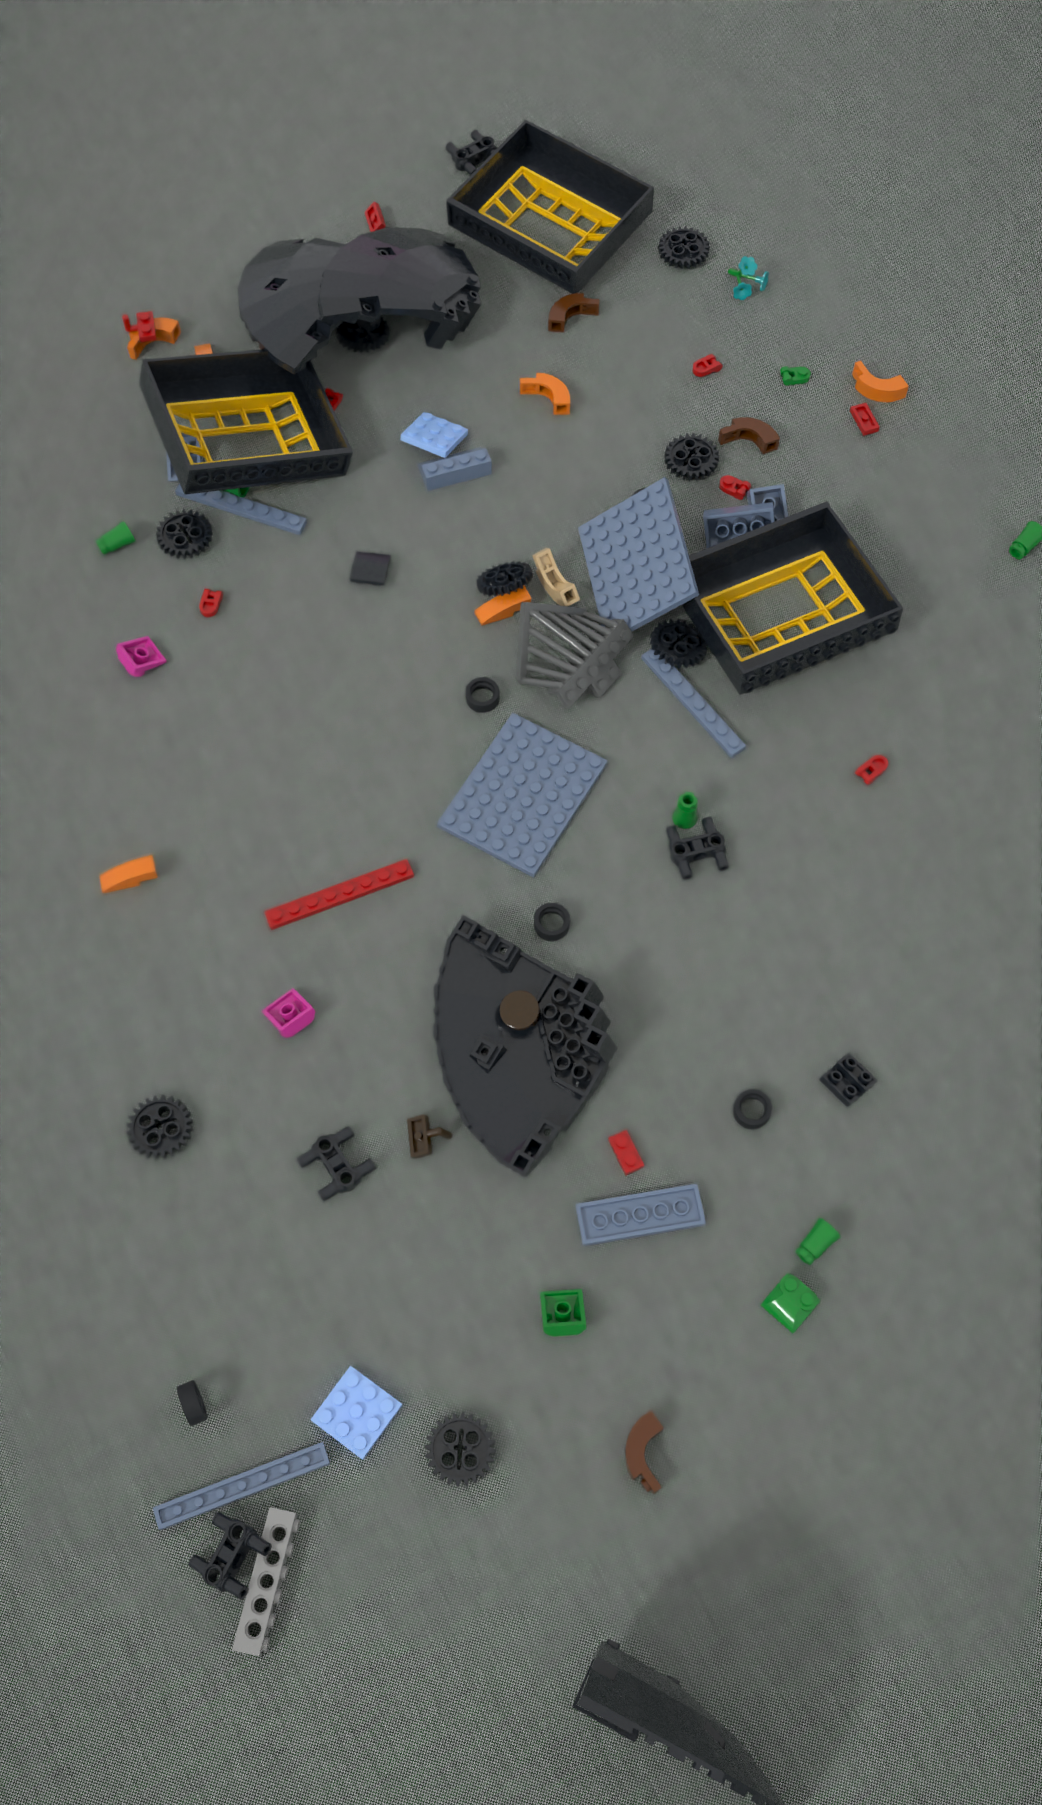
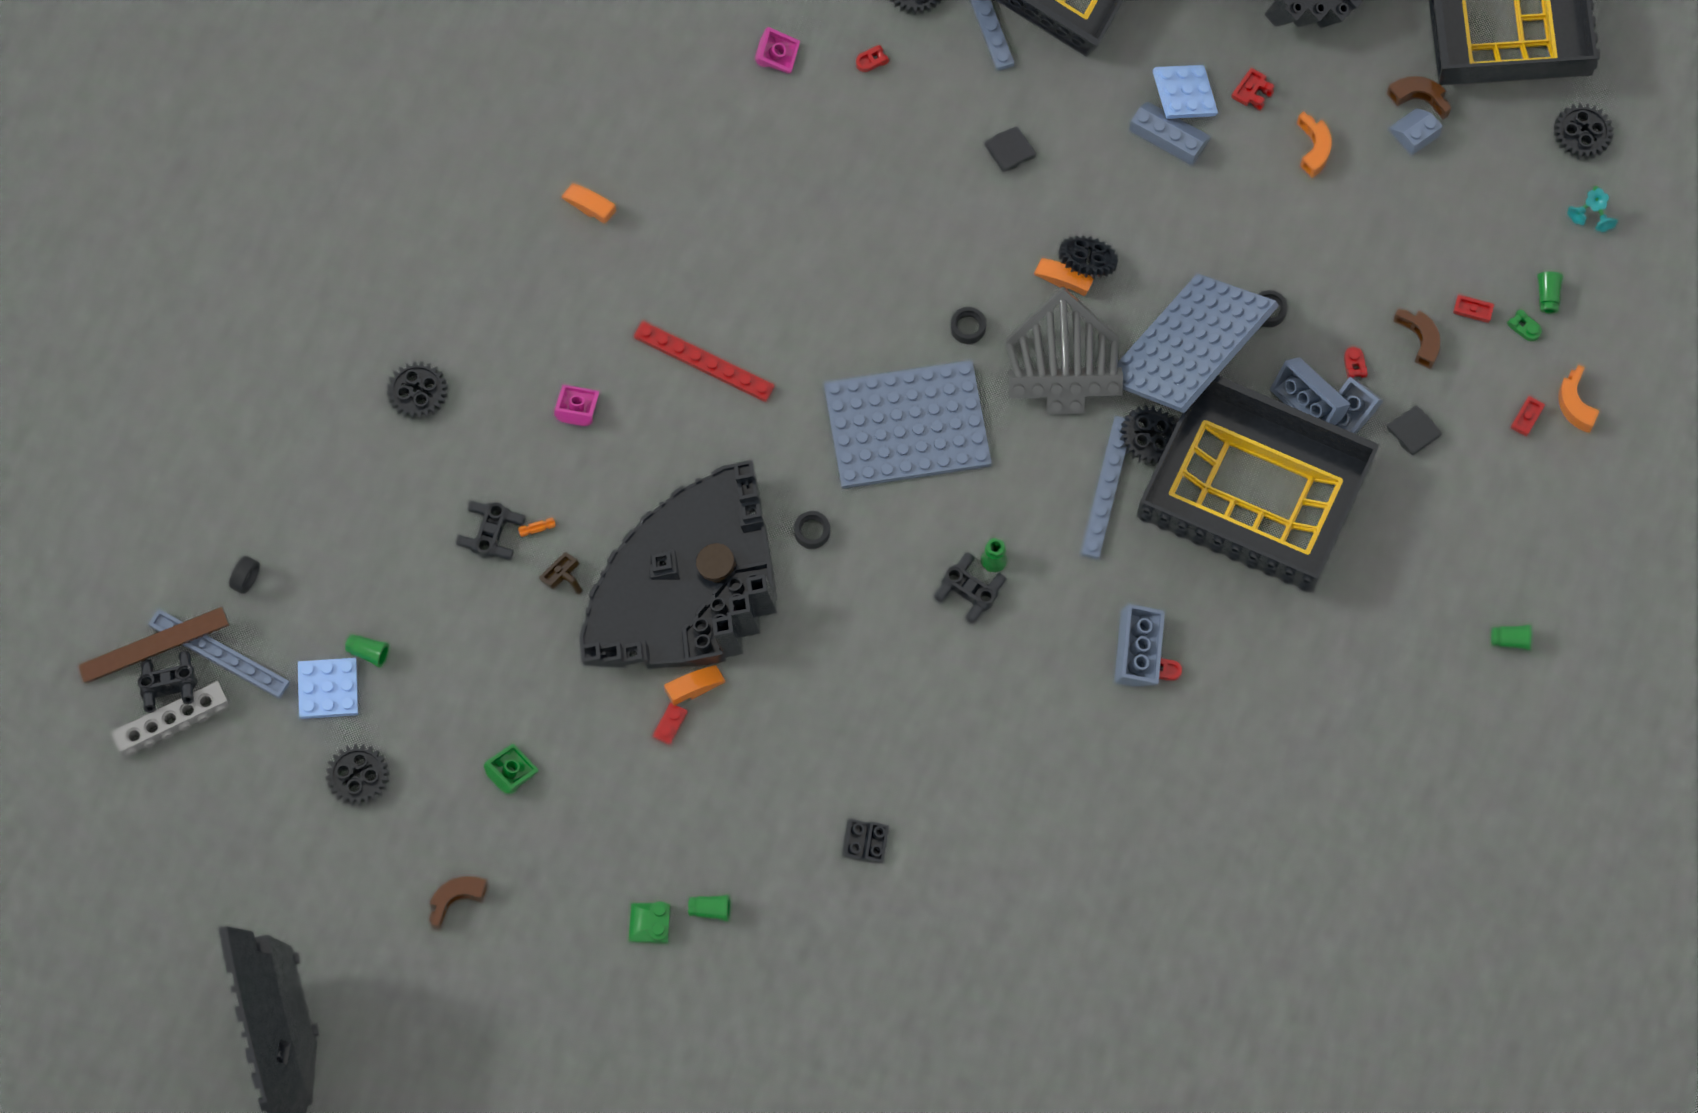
camera: 50 degrees right, 5 degrees up
(182, 1542) = (153, 645): none -> reddish brown tile
(352, 1349) = (368, 649): none -> green plant
(364, 1125) = (537, 527): none -> orange axle
(468, 400) = (1249, 86): none -> red plate
(557, 587) = (1124, 294): tan arch -> none
(593, 331) = (1416, 130): none -> sand blue slope
(608, 1107) = (693, 684): none -> orange slope
(640, 1214) = (628, 769): sand blue plate -> none
(691, 457) = (1350, 292): black gear -> none
(706, 366) = (1458, 246): red plate -> none
(753, 1094) = (783, 802): black tyre -> none
(756, 392) = (1473, 308): none -> red plate
(784, 343) = (1549, 291): none -> green plant
(818, 487) = (1414, 430): none -> black slope
(843, 770) = (1139, 646): none -> sand blue slope

